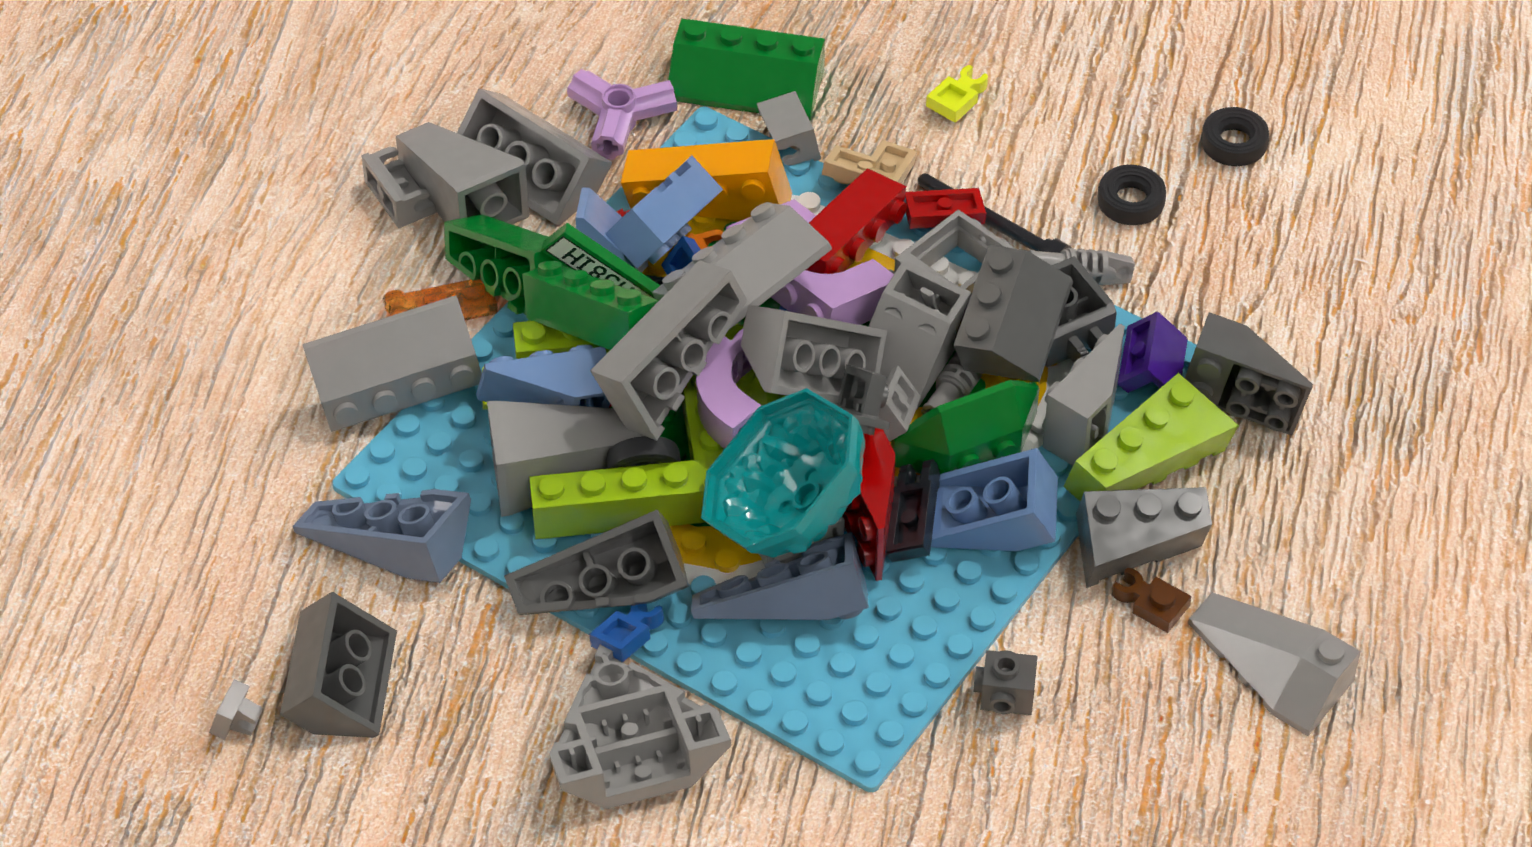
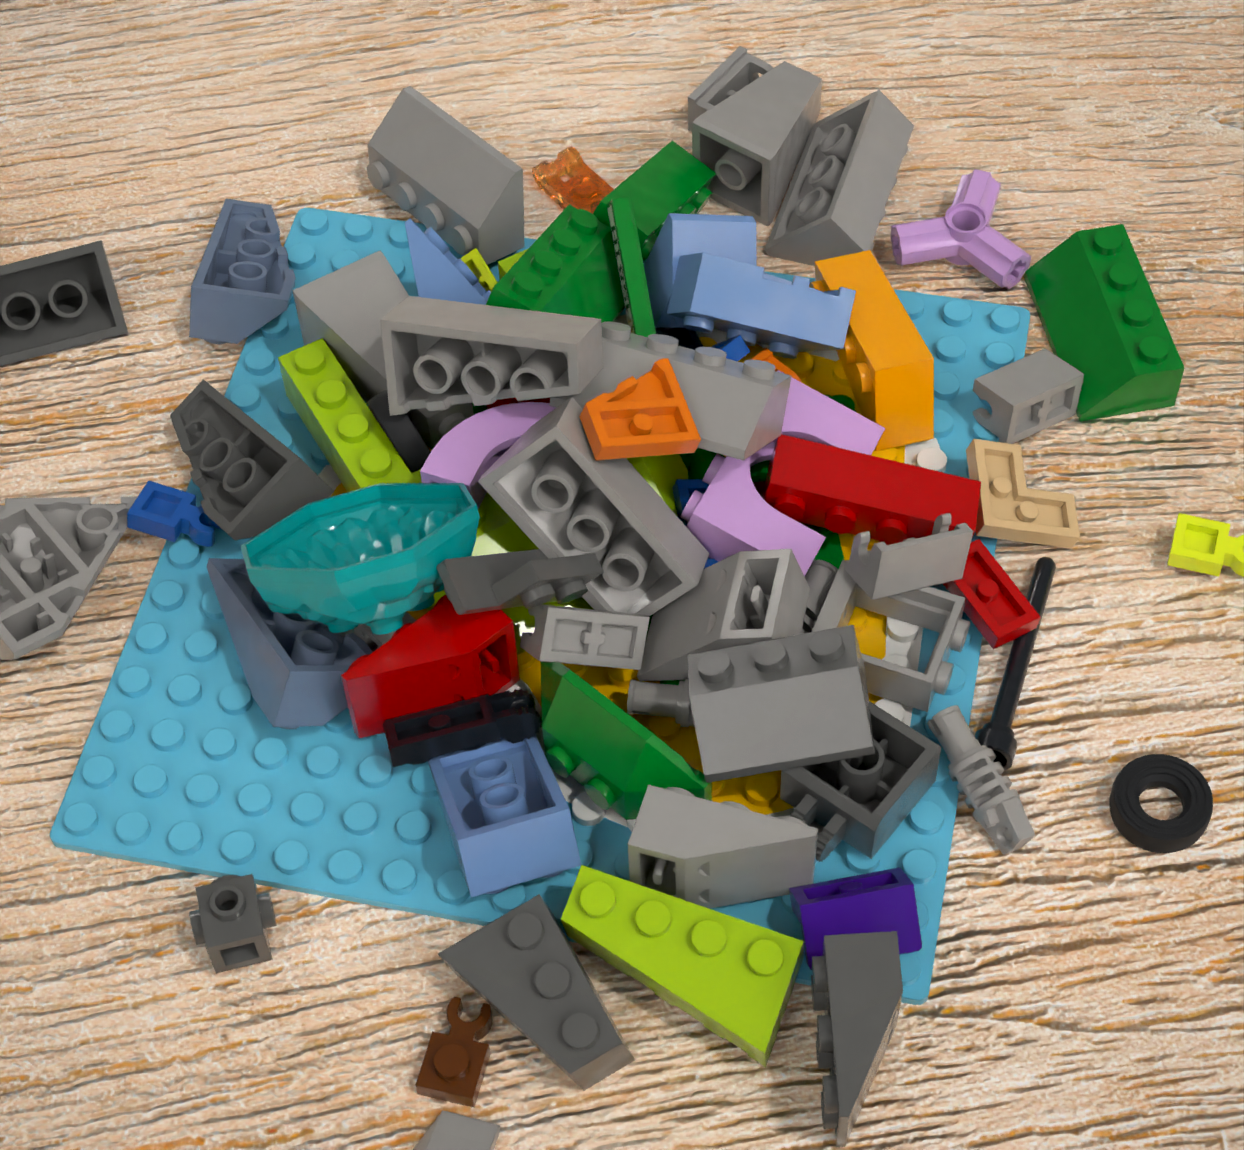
camera: 70 degrees right, 5 degrees up
(778, 278) = (641, 418): none -> orange wing
(919, 220) = (912, 562): none -> light grey hinge

